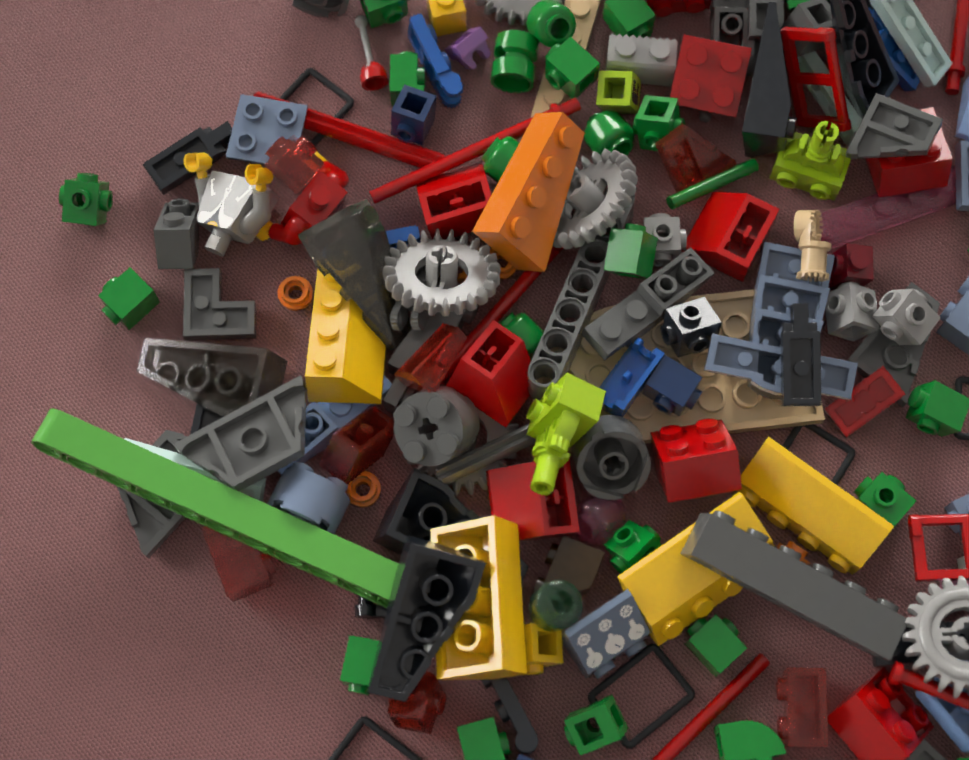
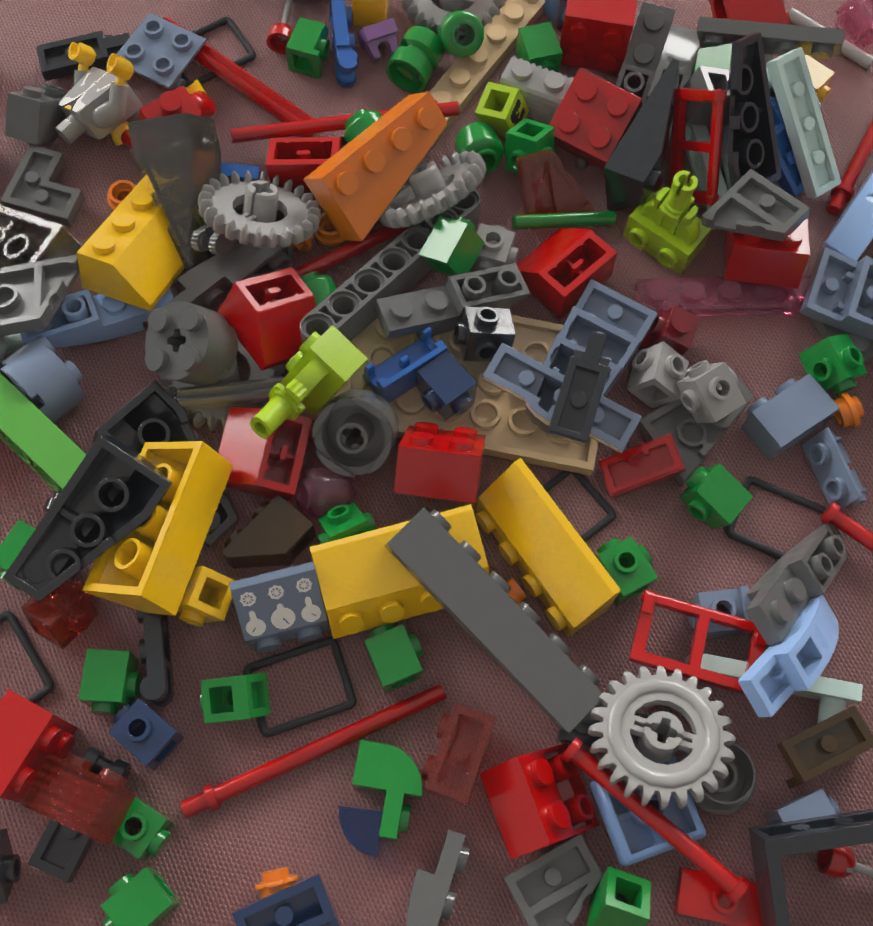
camera: 15 degrees right, 5 degrees down
(293, 161) = (160, 67): clear red brick -> none
(358, 444) = (108, 343): clear red brick -> none
(367, 500) = (103, 383): orange plate -> none
(413, 115) = (299, 74): dark blue brick -> none
(432, 360) = (204, 289): clear red wing -> none
(567, 605) = (233, 541): clear green head -> none
(570, 68) = (463, 74): green brick -> none
(814, 251) = (636, 282): tan connector -> none

